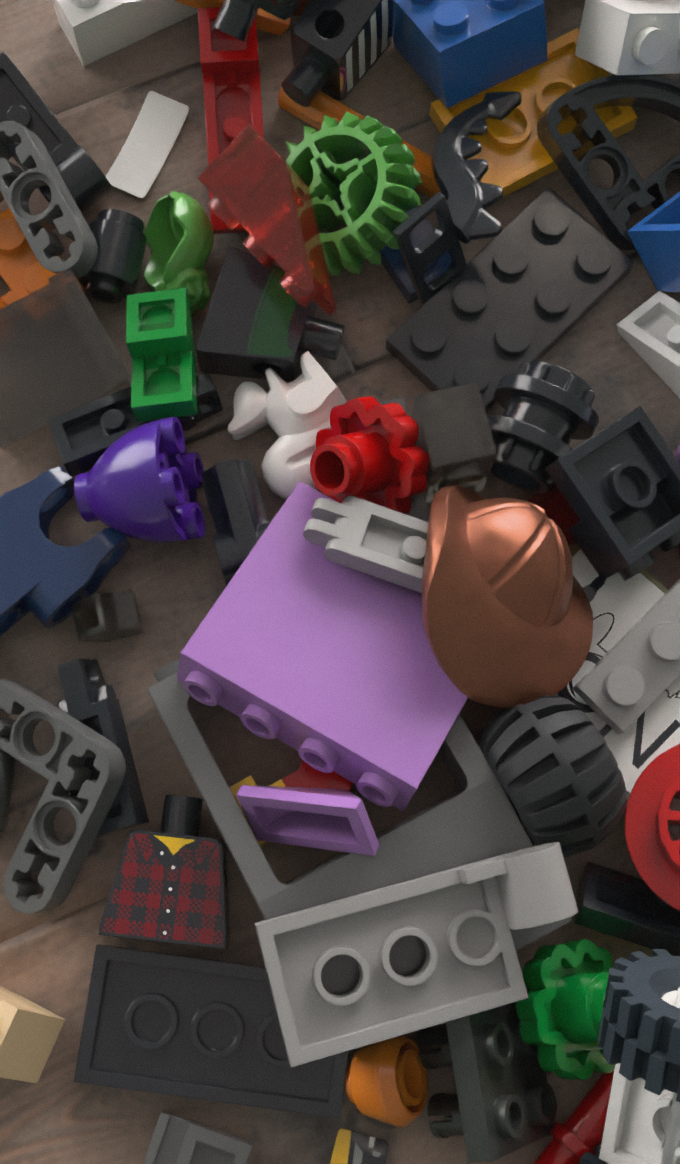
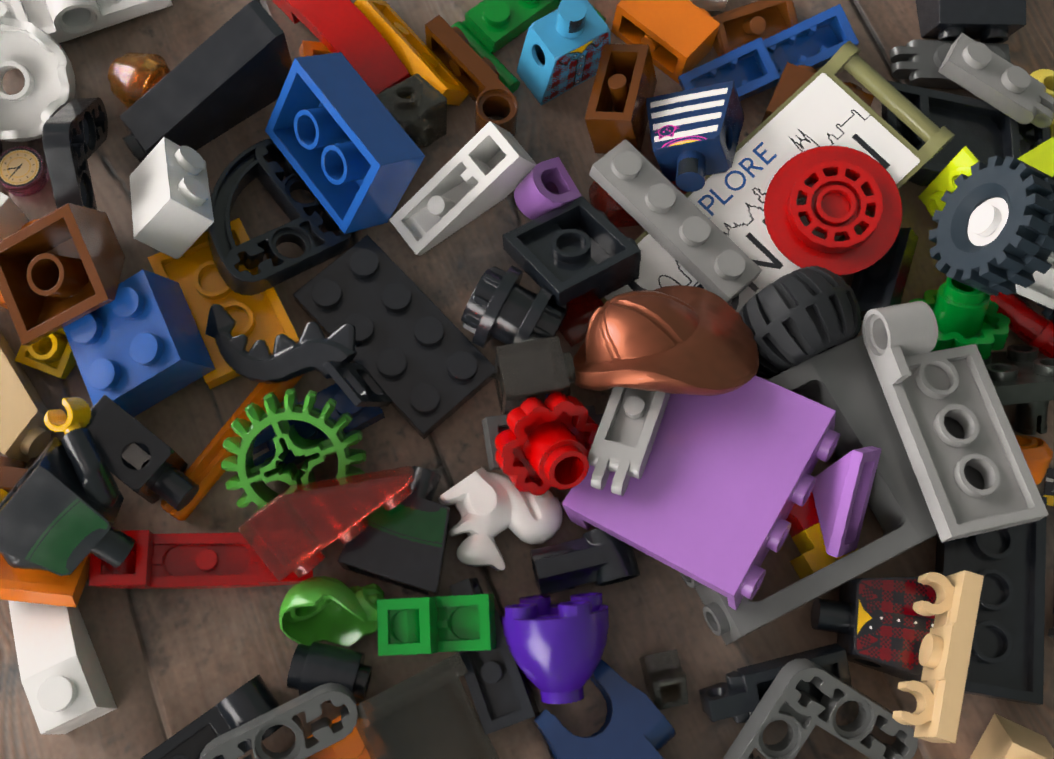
camera: 95 degrees left, 5 degrees down
(121, 926) = (944, 656): none -> tan plate
(148, 145) = (210, 644): white sticker -> none

